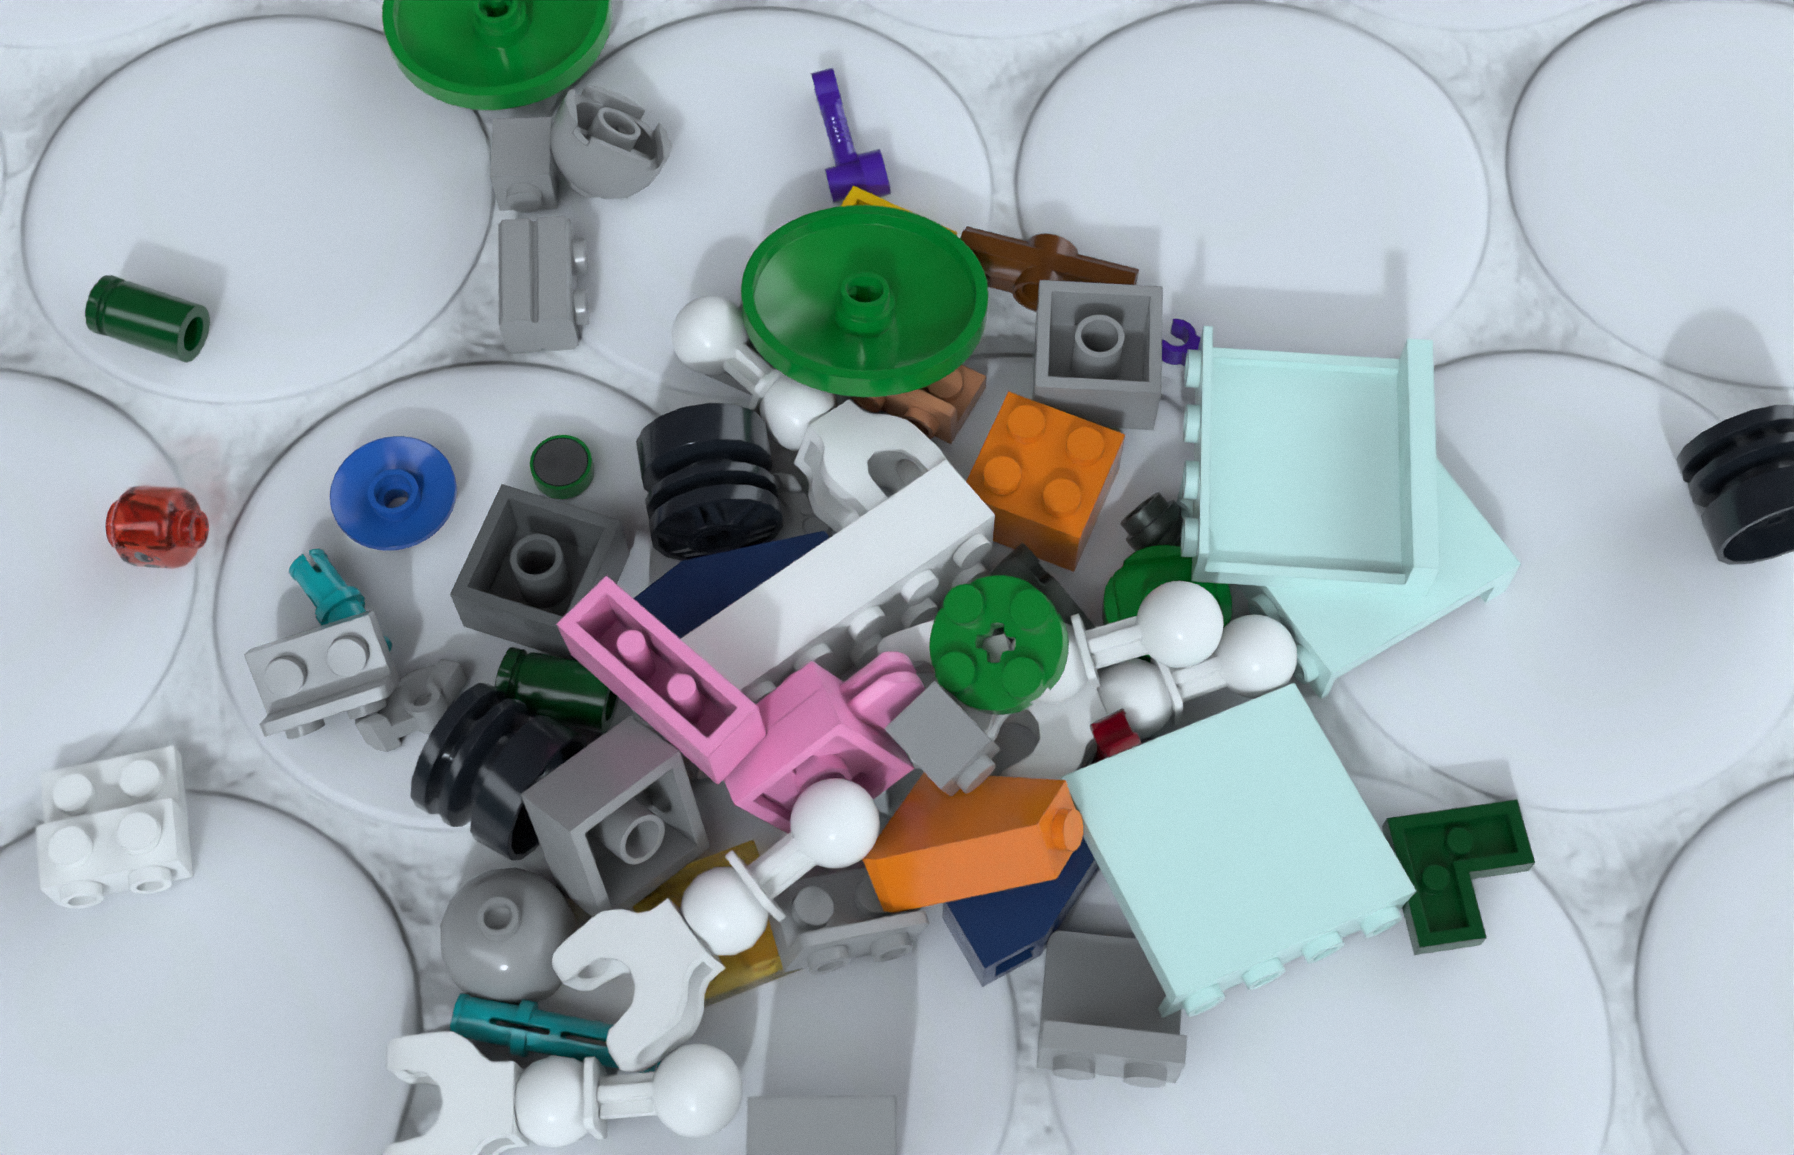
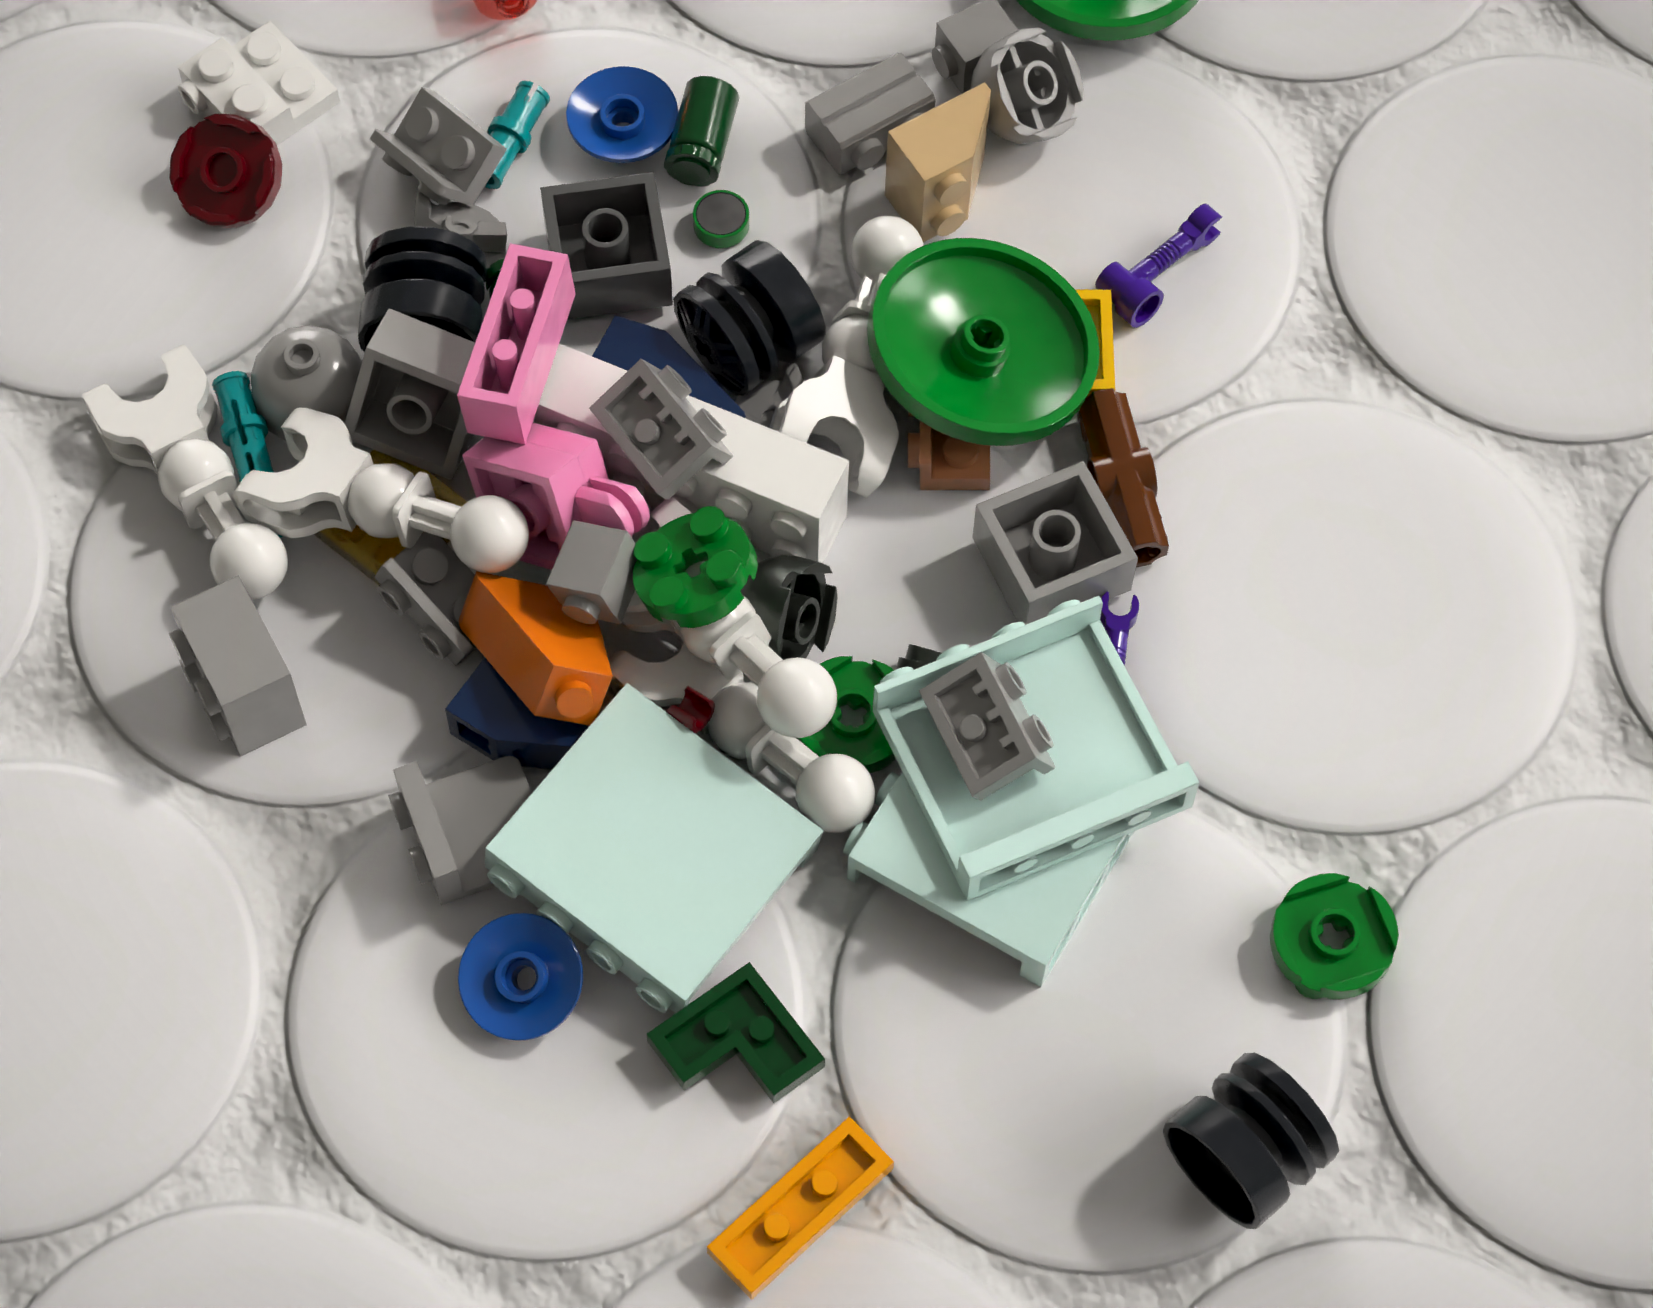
camera: 60 degrees right, 0 degrees up
(200, 900) = (226, 171): none -> dark red tile
(460, 432) = (701, 131): none -> dark green piece
(649, 246) = (938, 162): none -> tan slope
(829, 600) = (660, 427): none -> light grey bracket
(1045, 478) = (910, 563): orange brick -> none
(1285, 483) = (987, 724): none -> light grey bracket
(1336, 1042) = (491, 972): none -> blue dish
(1562, 367) = (1317, 967): none -> green plate
(1652, 897) = (800, 1207): none -> light orange plate

